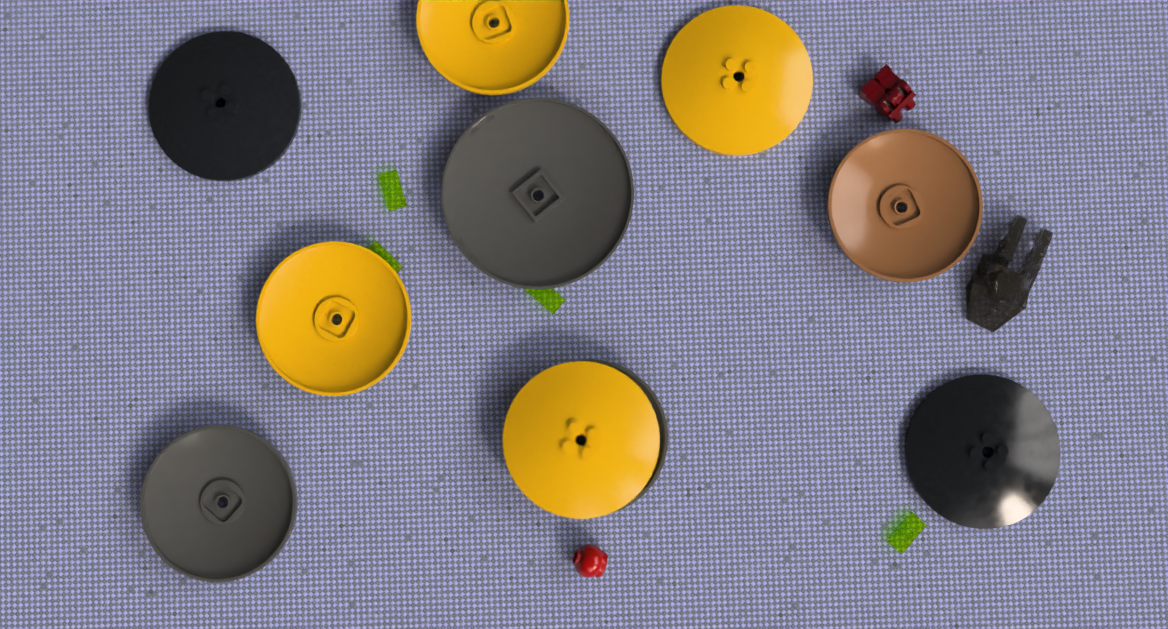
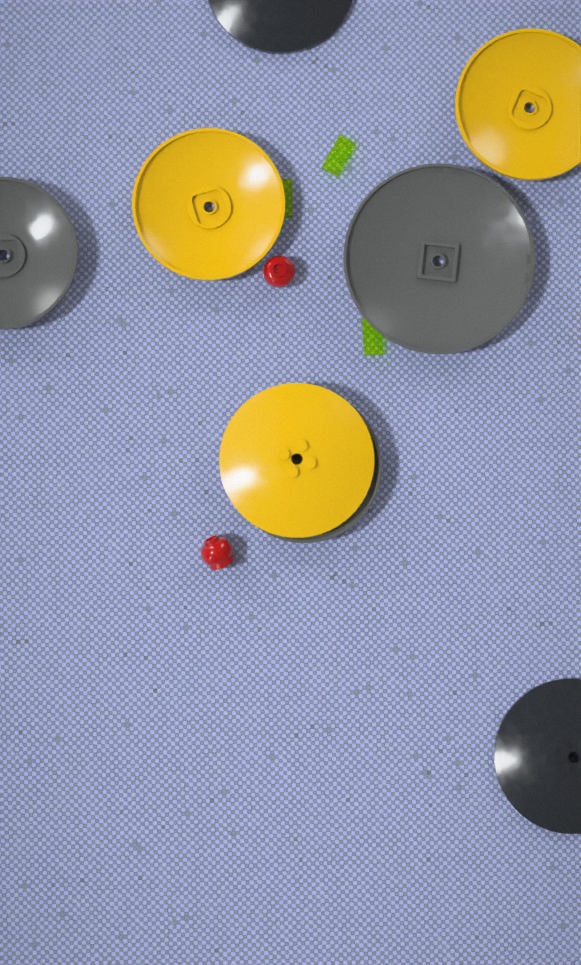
camera: 40 degrees right, 0 degrees up
(433, 315) = (279, 271): none -> red piece
(906, 532) = (459, 758): clear neon green plate -> none

